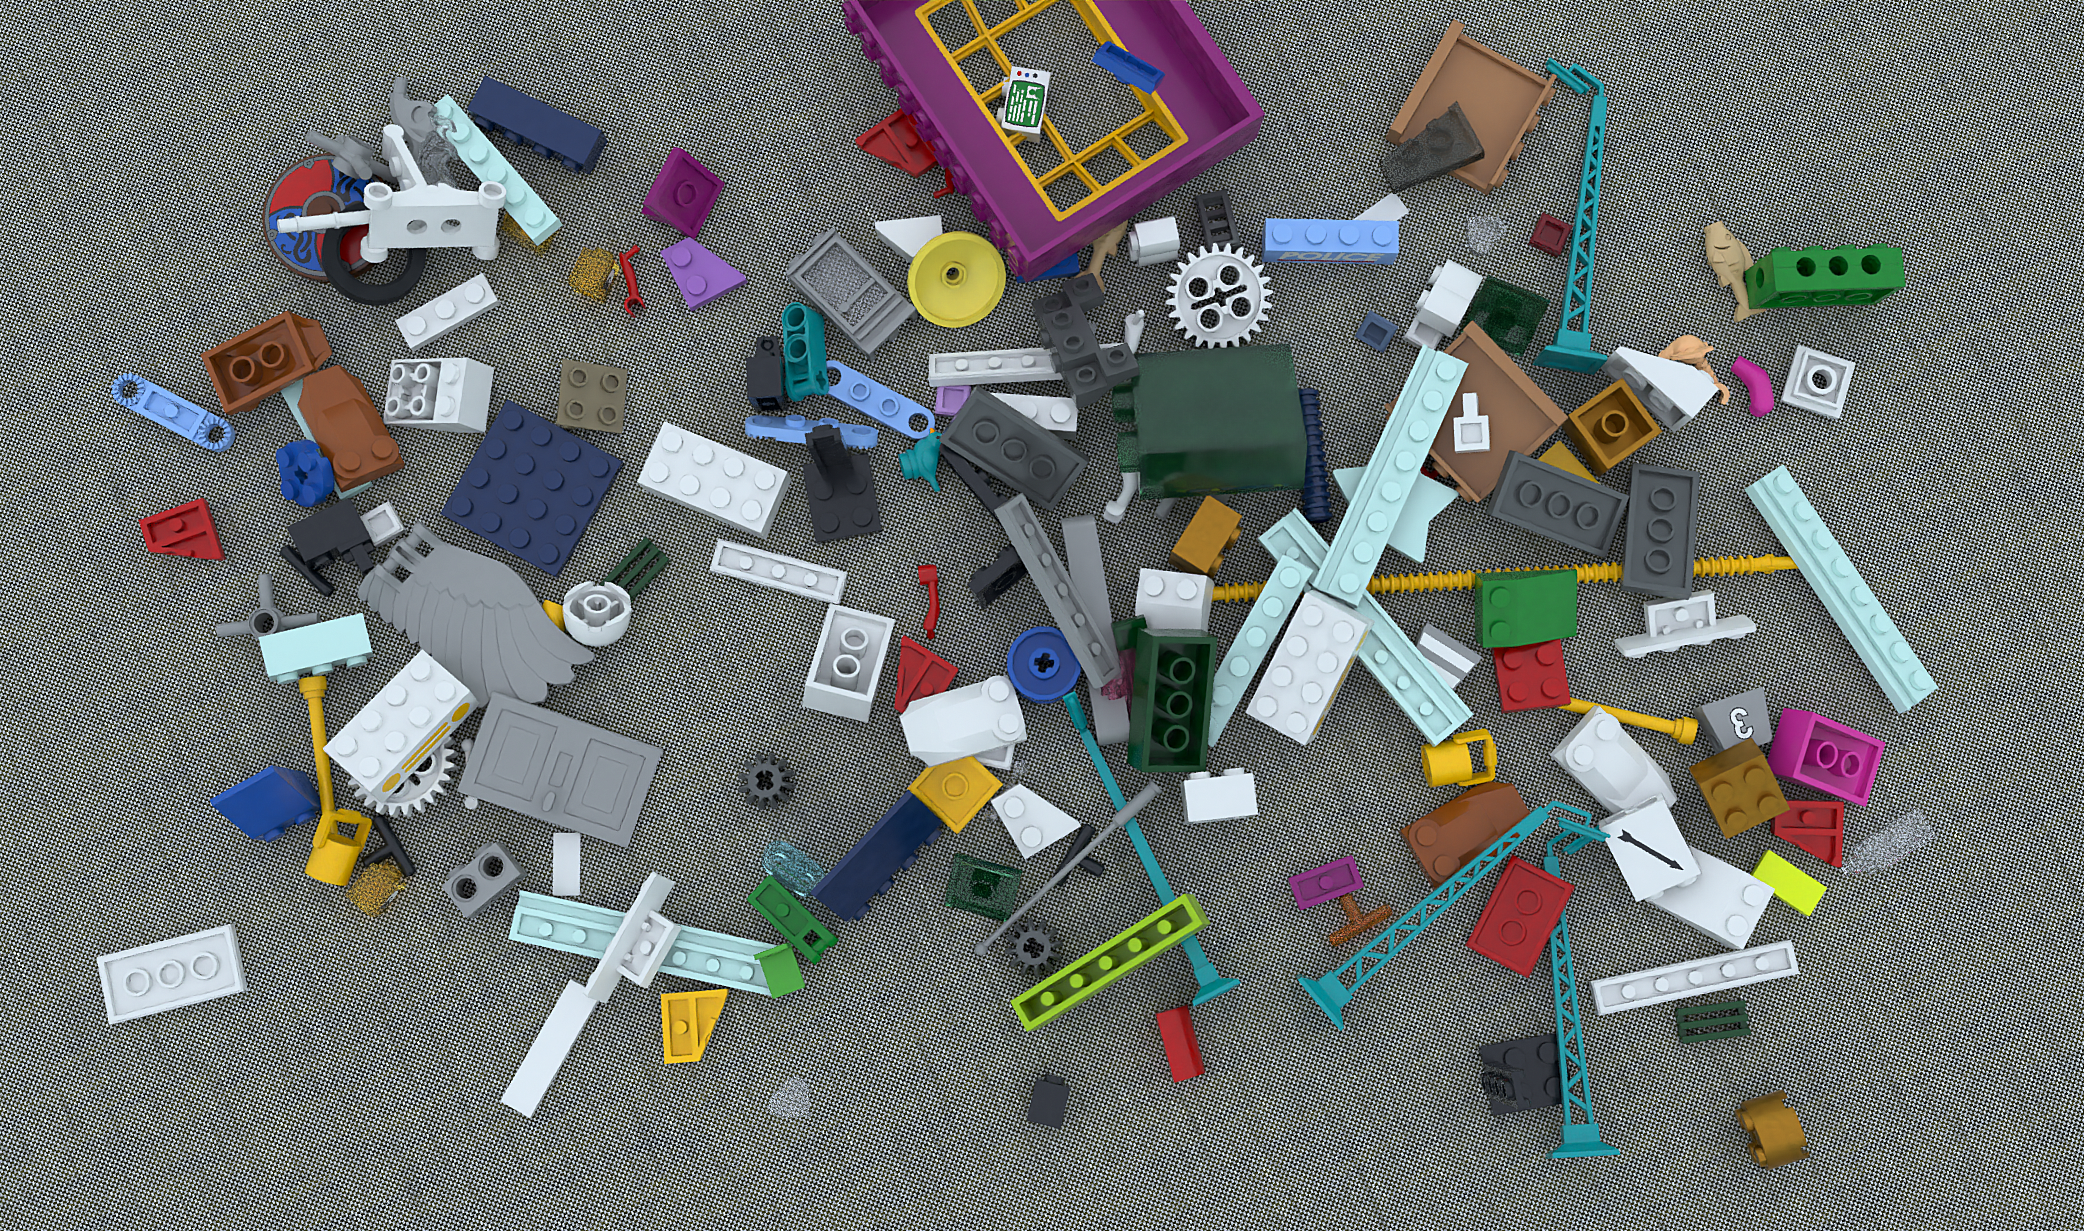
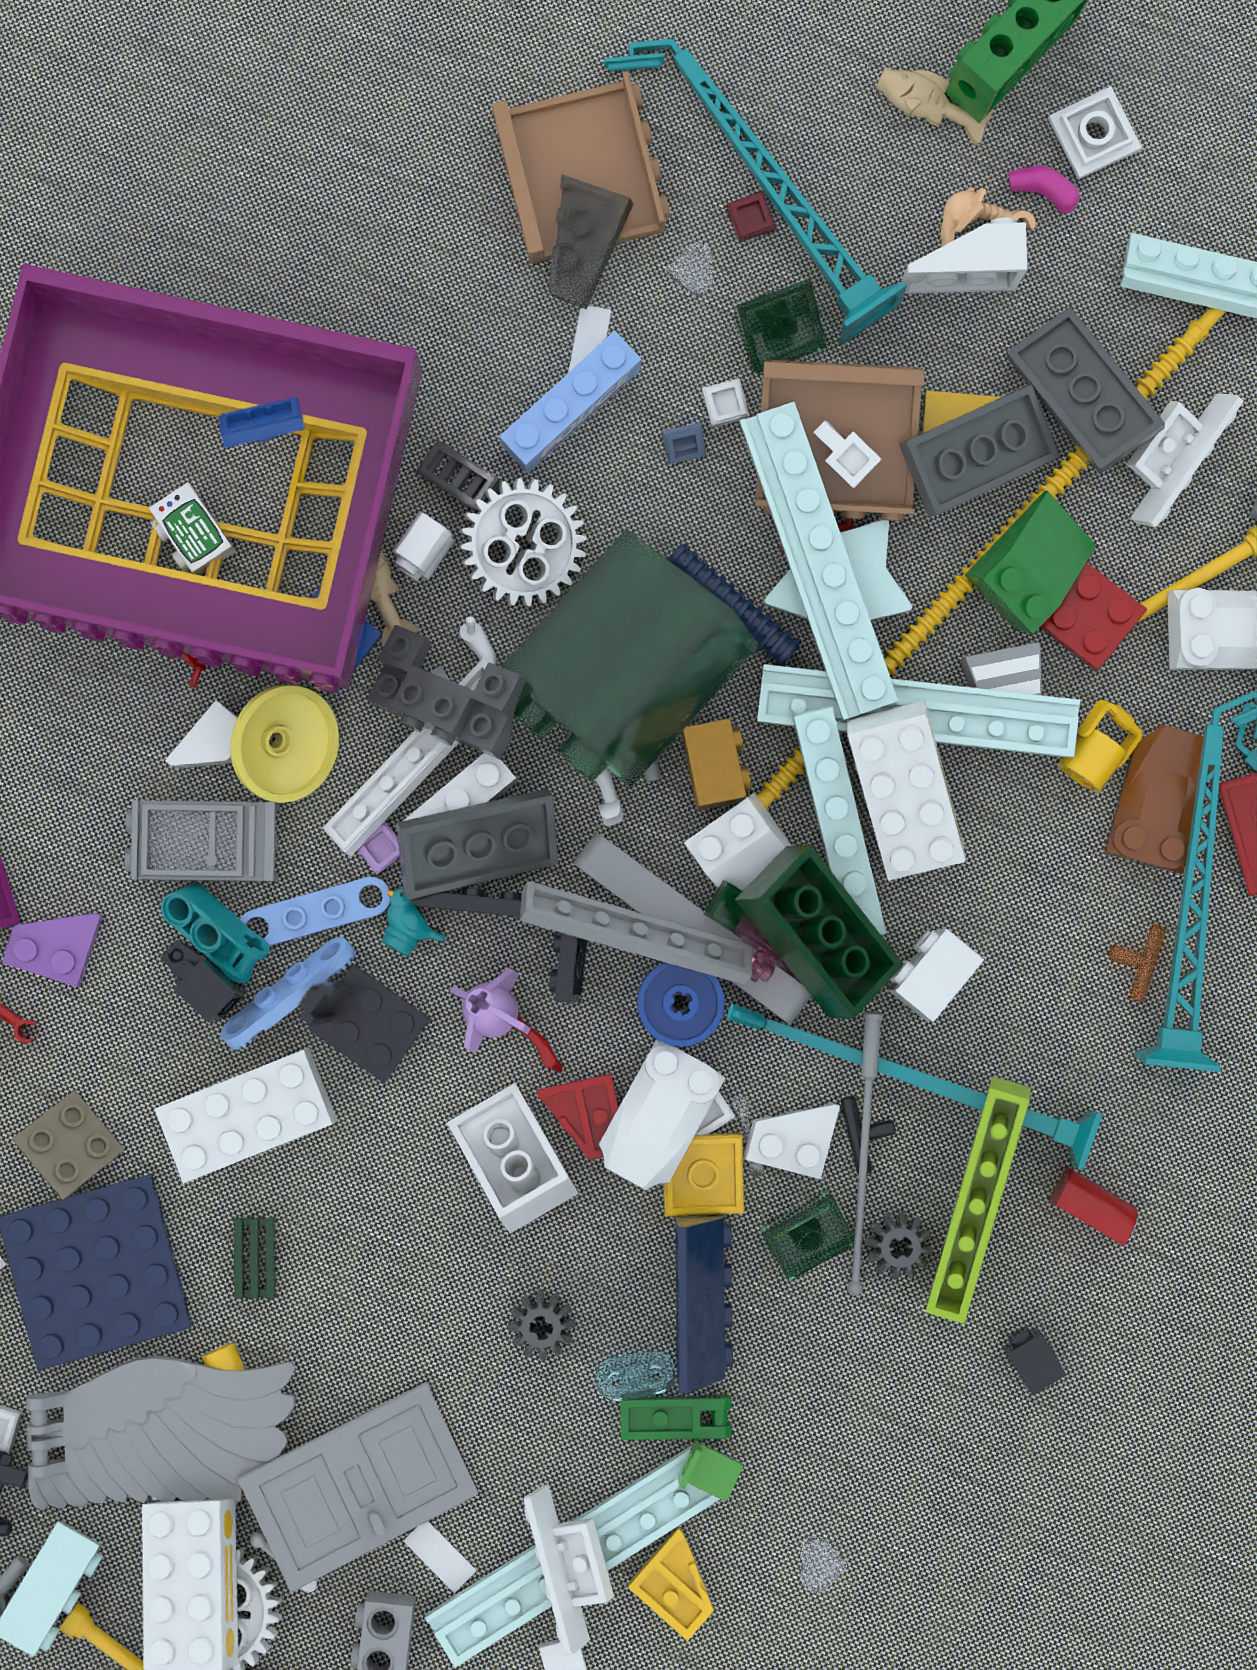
camera: 50 degrees left, 5 degrees up
(597, 613) = (258, 1326): white cylinder -> none
(778, 572) = (376, 1138): white tile -> none
(899, 144) = (117, 671): red wing -> none
(923, 557) = (490, 1009): none -> lavender piece
(1325, 882) = (1086, 956): magenta plate -> none
(1448, 298) = (718, 356): white brick -> none
(1610, 427) = (961, 339): pearl gold brick -> none

